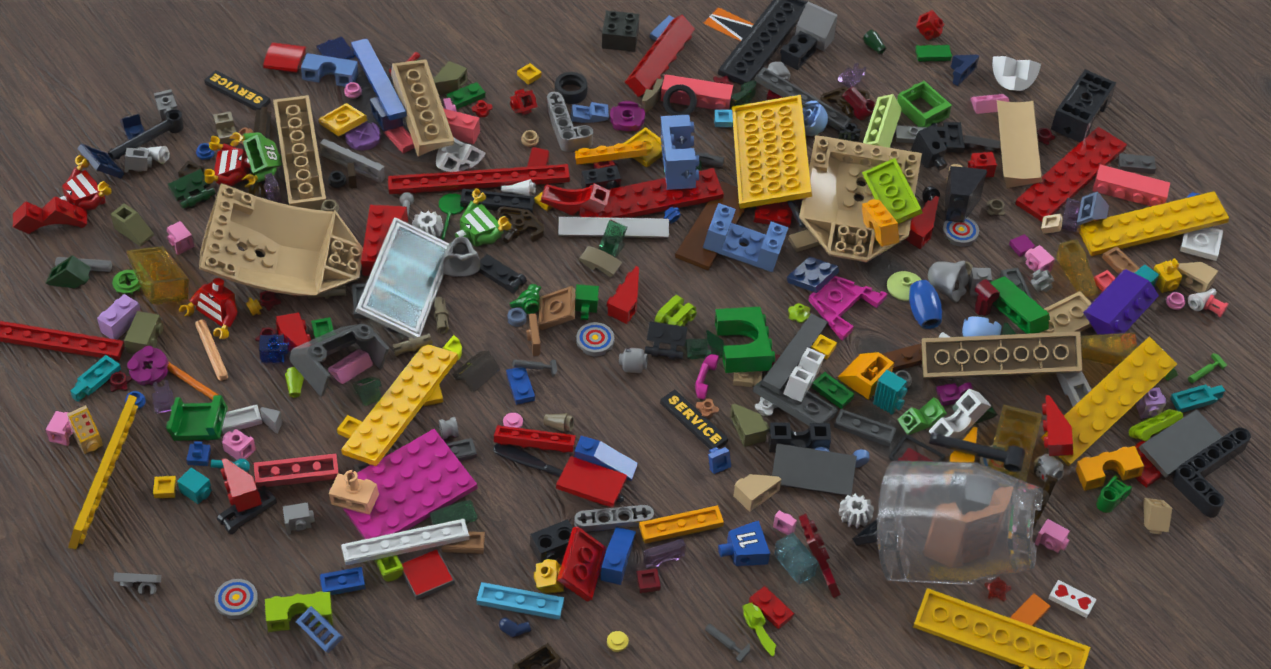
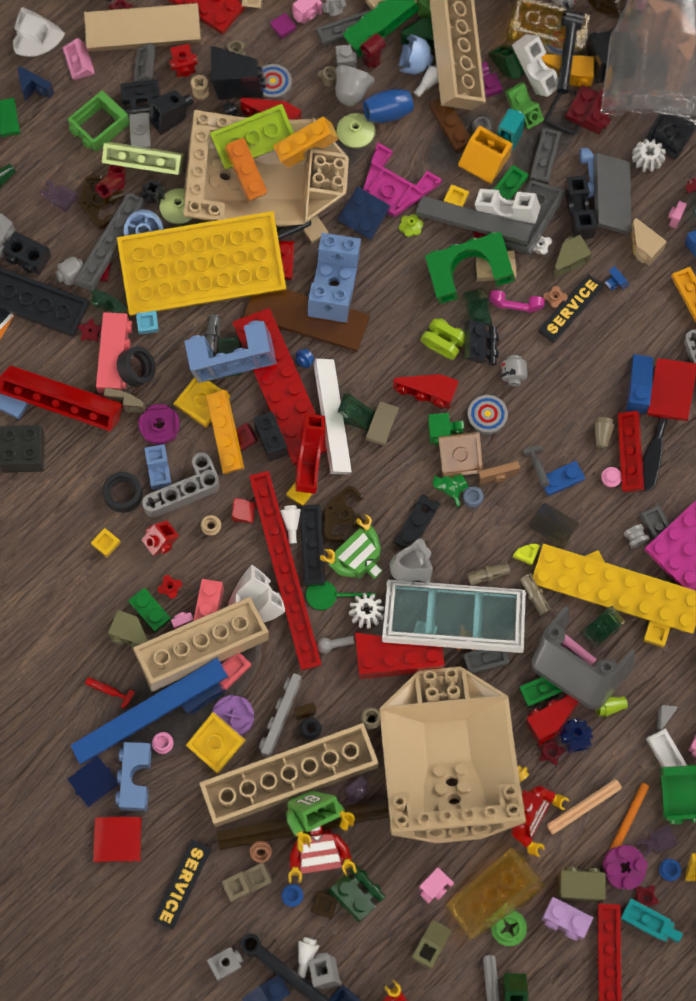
camera: 95 degrees left, 20 degrees up
(856, 181) = (245, 170): none -> orange brick

